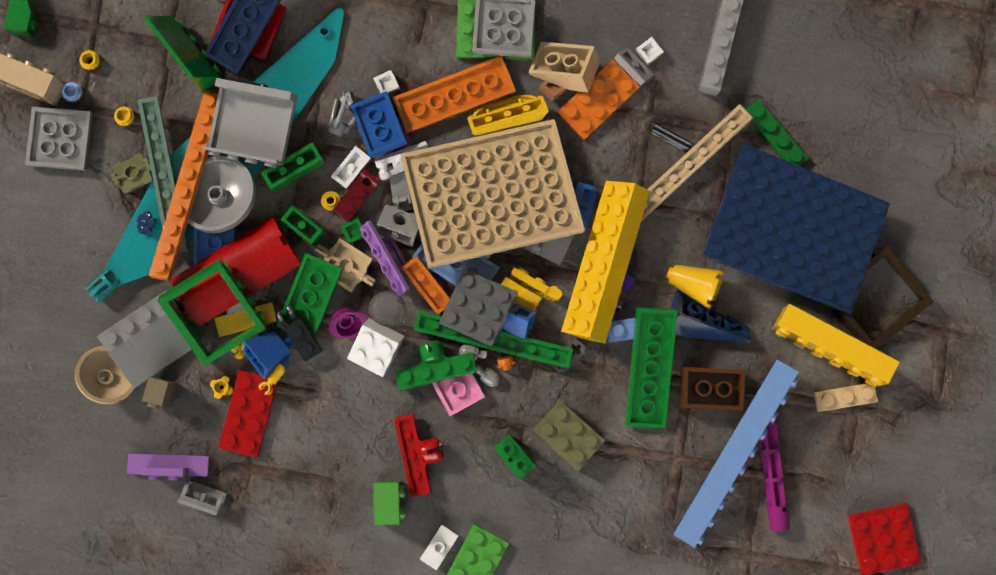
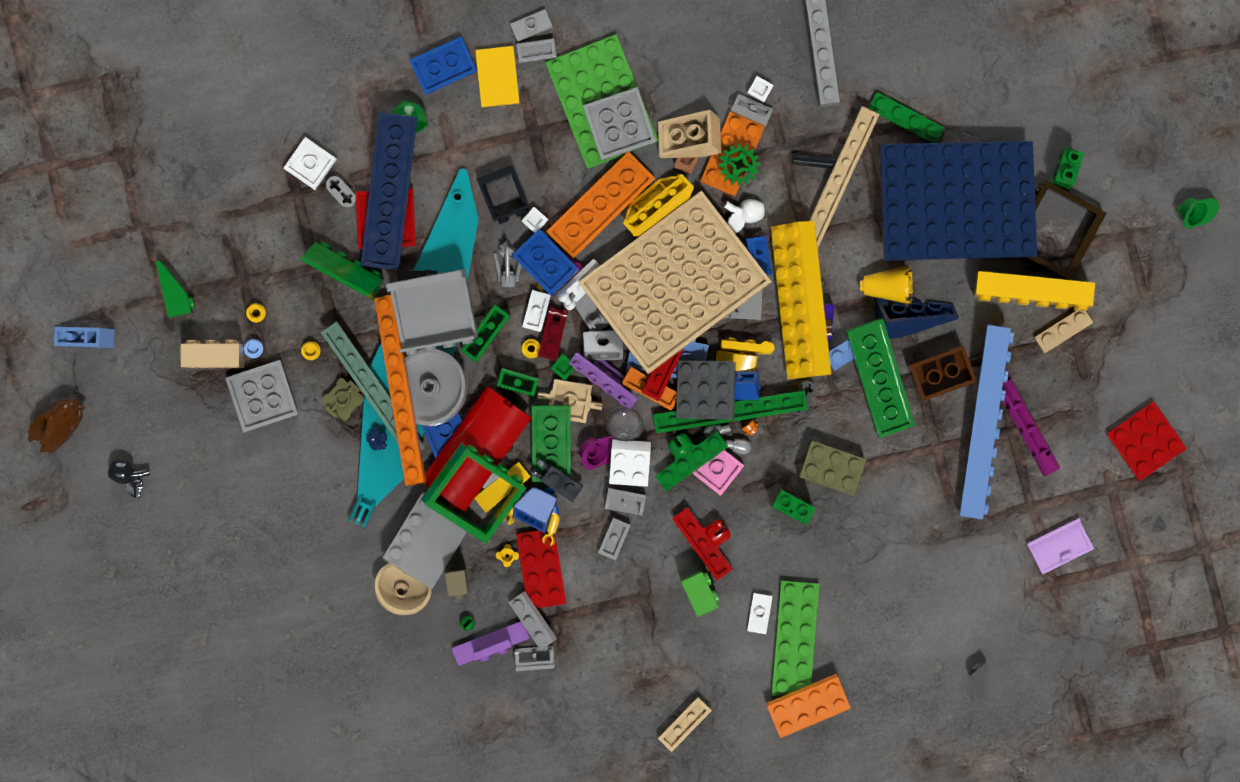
camera: 20 degrees left, 5 degrees up
(156, 440) = (470, 626): none -> green hinge
(216, 460) = (532, 620): none -> light grey plate
(330, 414) = (614, 539): none -> light grey plate
(356, 383) = (625, 501): none -> light grey hinge
(367, 27) = (496, 176): none -> black window
(439, 277) = (659, 378): none -> red plate
(591, 159) = (748, 212): none -> white piece
(605, 115) = (742, 157): none -> green gear
(913, 242) = (1068, 168): none -> green hips

